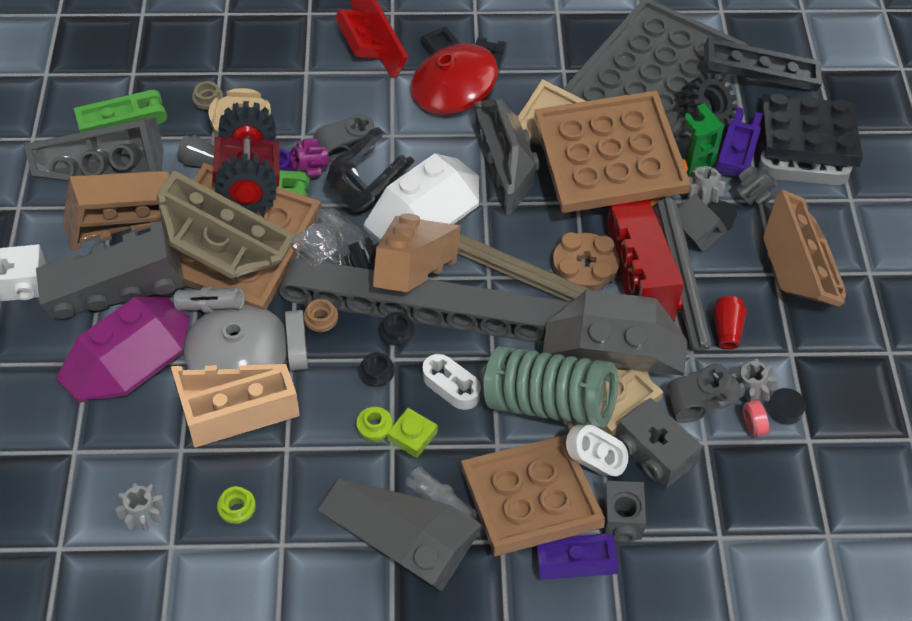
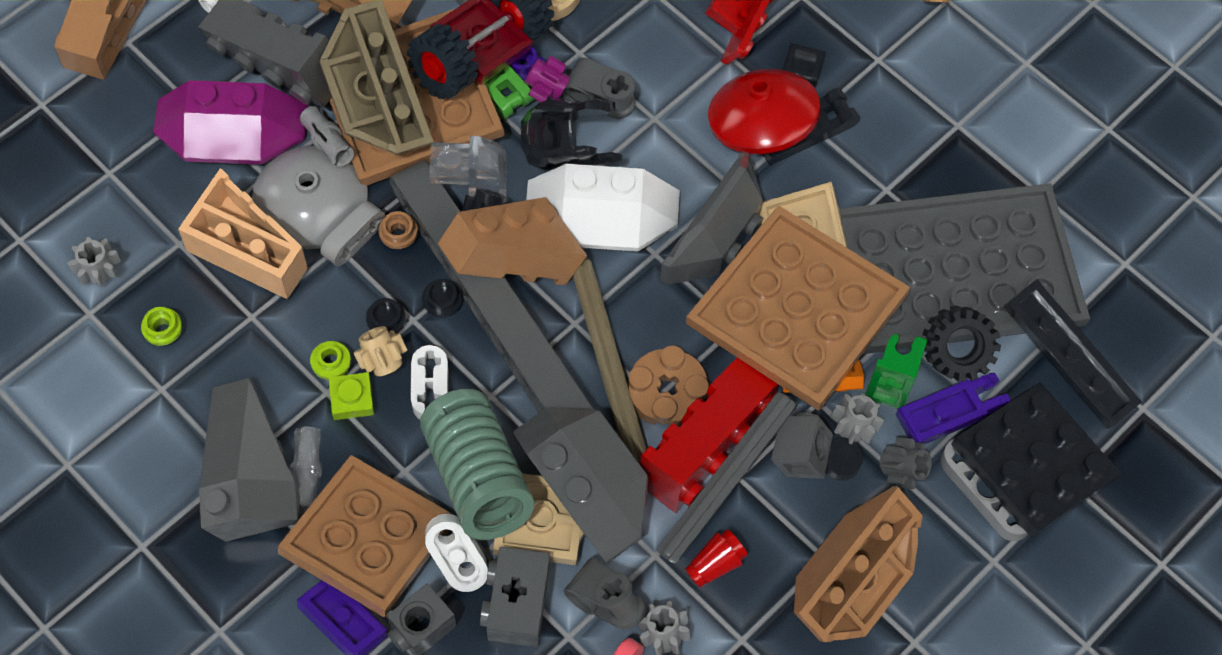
camera: 45 degrees right, 10 degrees up
(402, 387) = (380, 351): none -> tan gear

